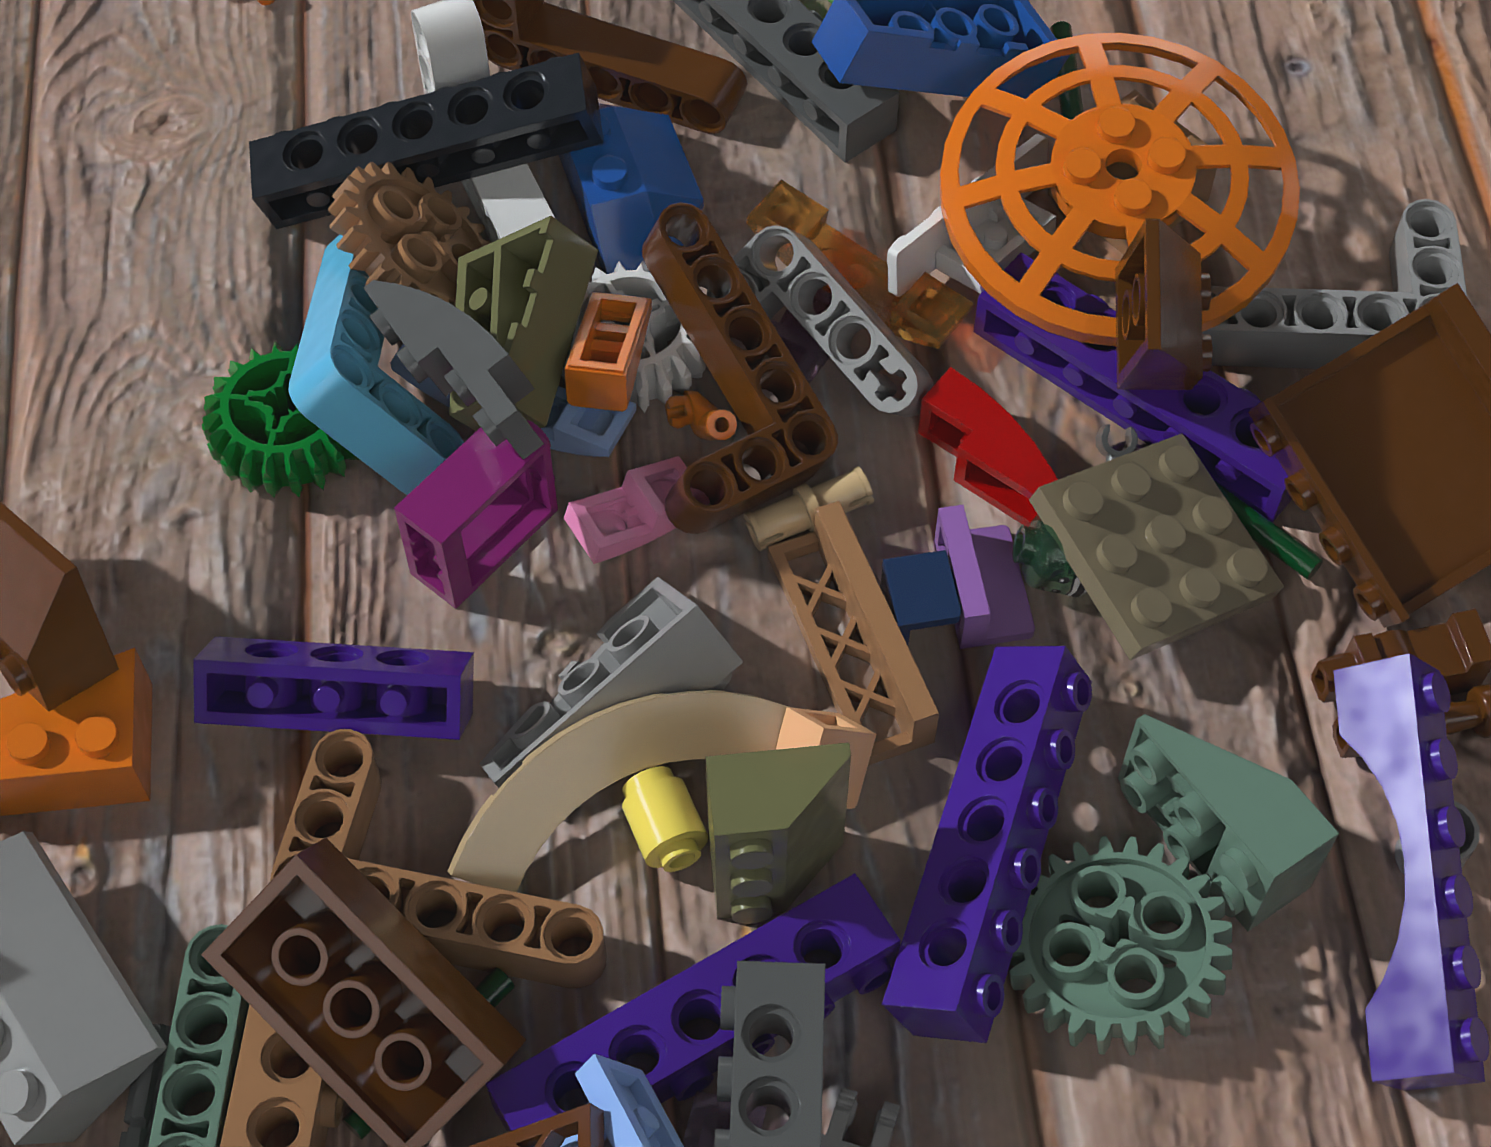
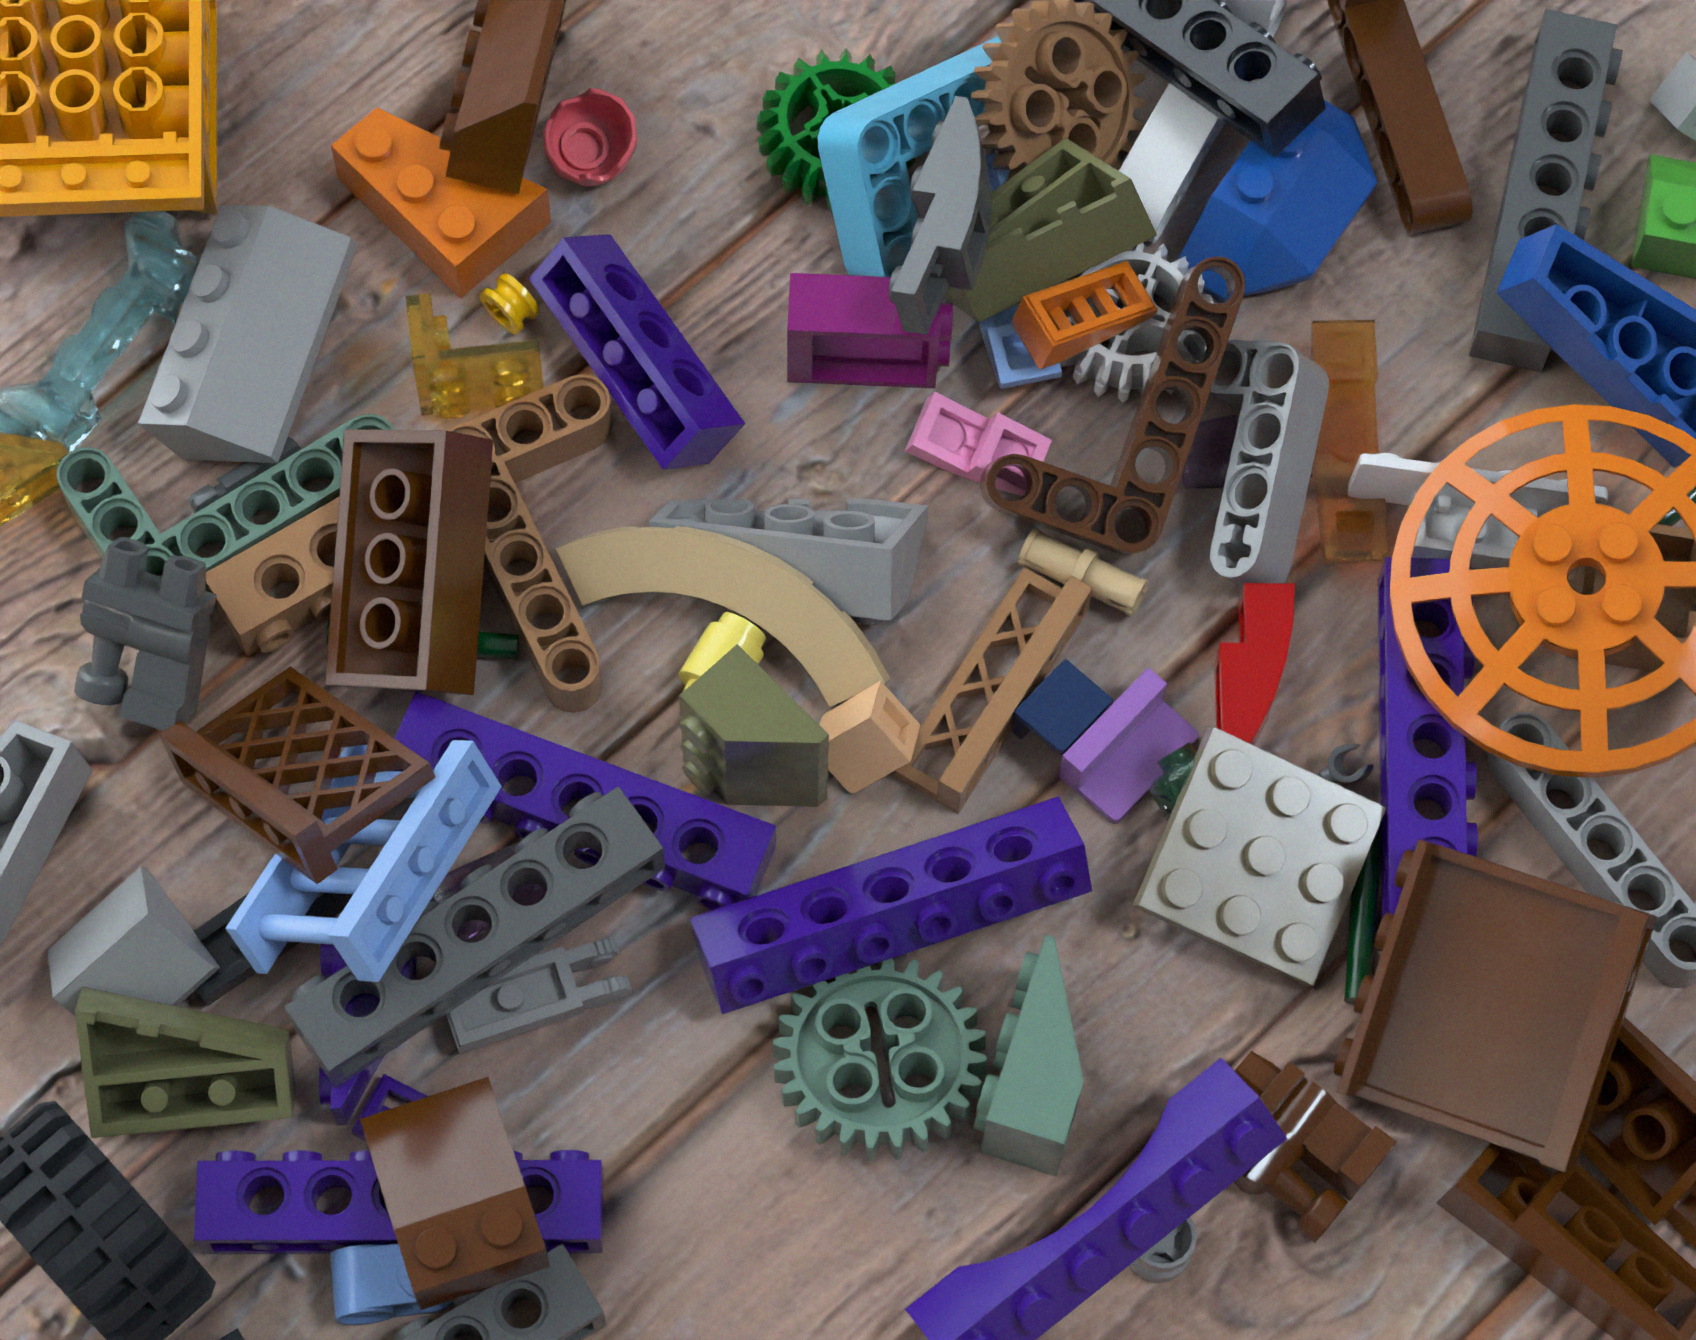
camera: 50 degrees right, 10 degrees up
(124, 588) = (590, 138): none -> coral hair
(196, 759) = (509, 303): none -> yellow bush
(227, 847) = (466, 377): none -> clear yellow bracket
(702, 416) = (1106, 420): orange arm -> none
(1161, 312) = (1440, 706): reddish brown slope -> none

